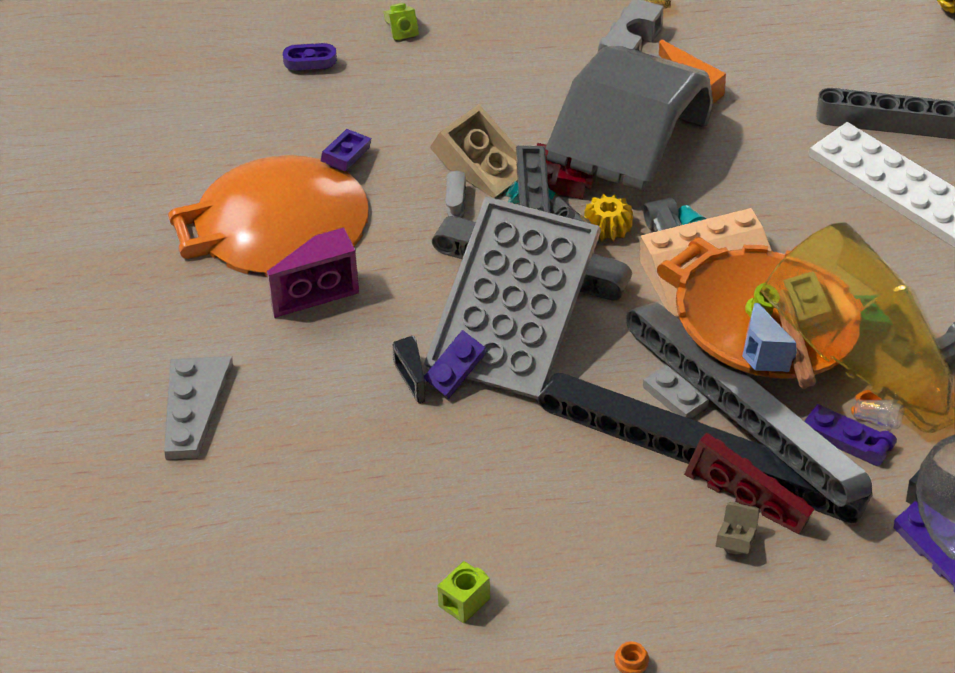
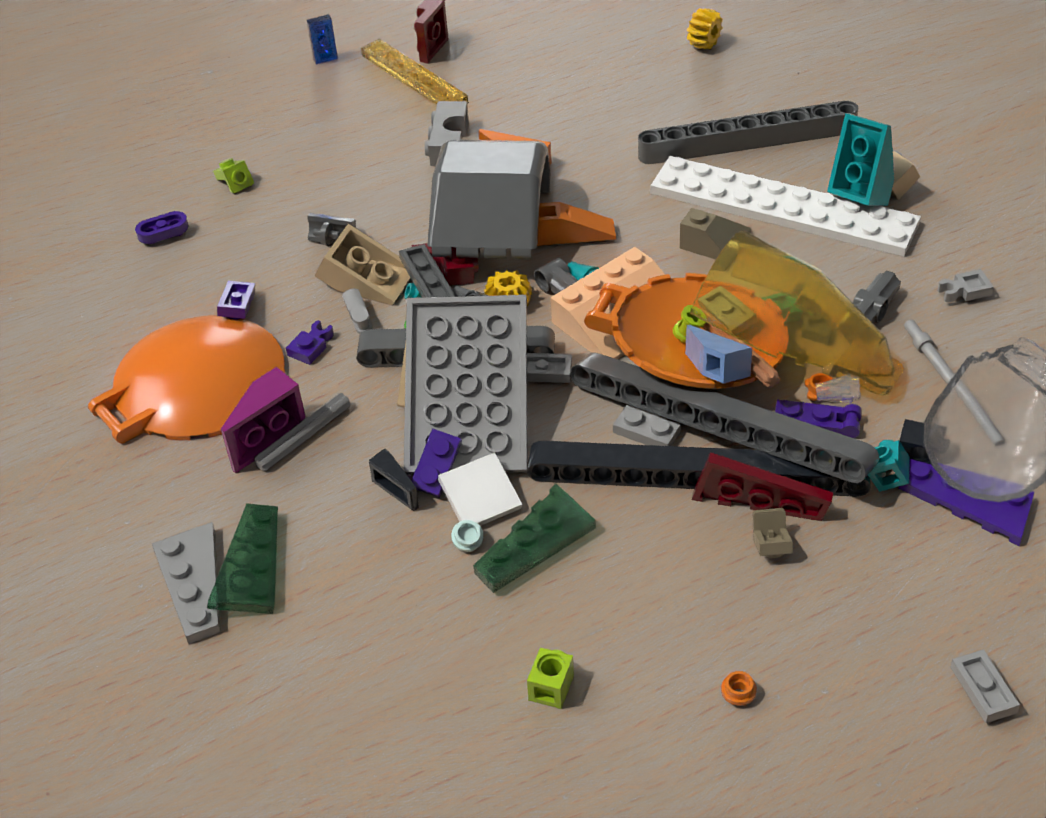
camera: 20 degrees left, 0 degrees up
(245, 407) = (249, 568): none -> clear green wing
(350, 297) = (302, 432): none -> light grey axle
(396, 215) = (310, 345): none -> dark purple plate
(453, 441) = (467, 535): none -> light aqua plate
(463, 99) = (327, 228): none -> dark grey hips
(484, 404) = (480, 490): none -> white tile
(528, 460) = (543, 533): none -> clear green wing
(604, 303) = (549, 367): none -> light grey plate
(699, 164) = (568, 224): none -> orange slope
(837, 206) = (707, 233): none -> dark tan slope
(889, 501) = (891, 456): none -> teal brick

